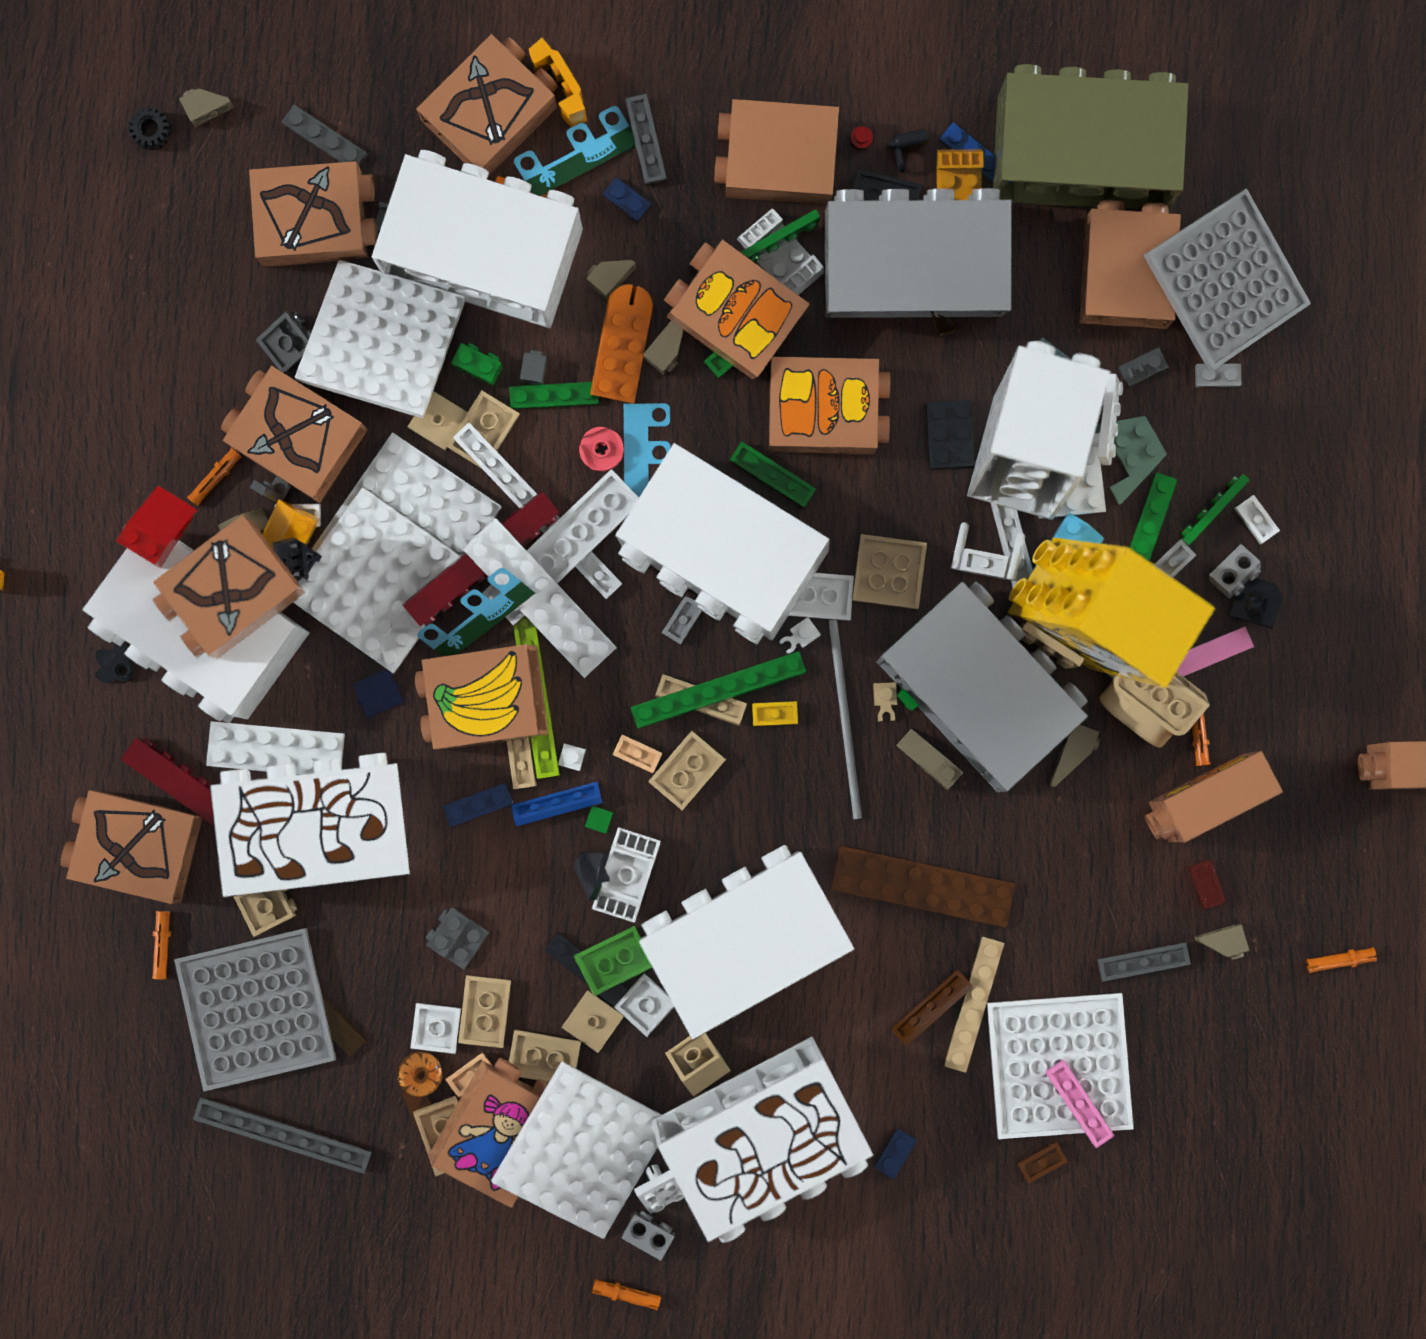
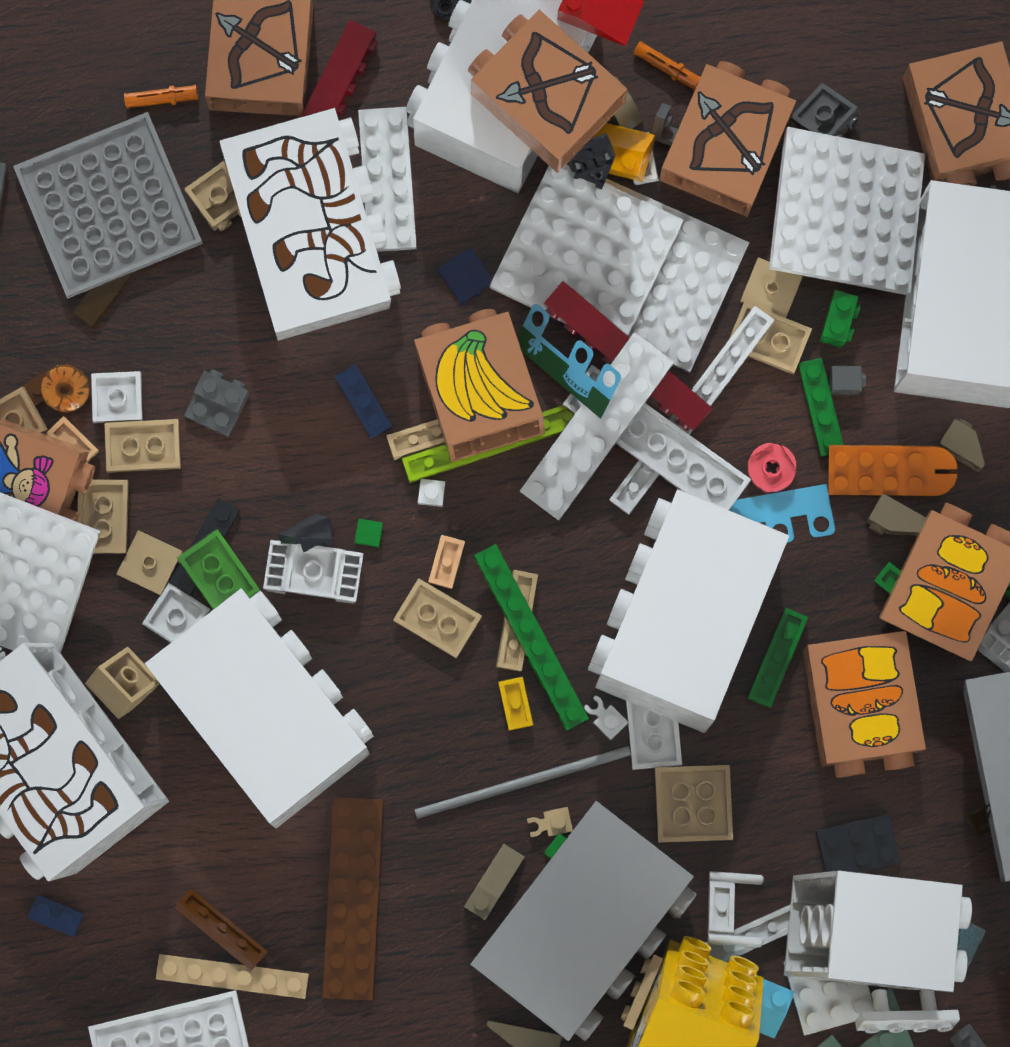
camera: 75 degrees right, 5 degrees down
(556, 803) = (378, 484): blue plate -> none
(682, 620) = (599, 585): light grey plate -> none

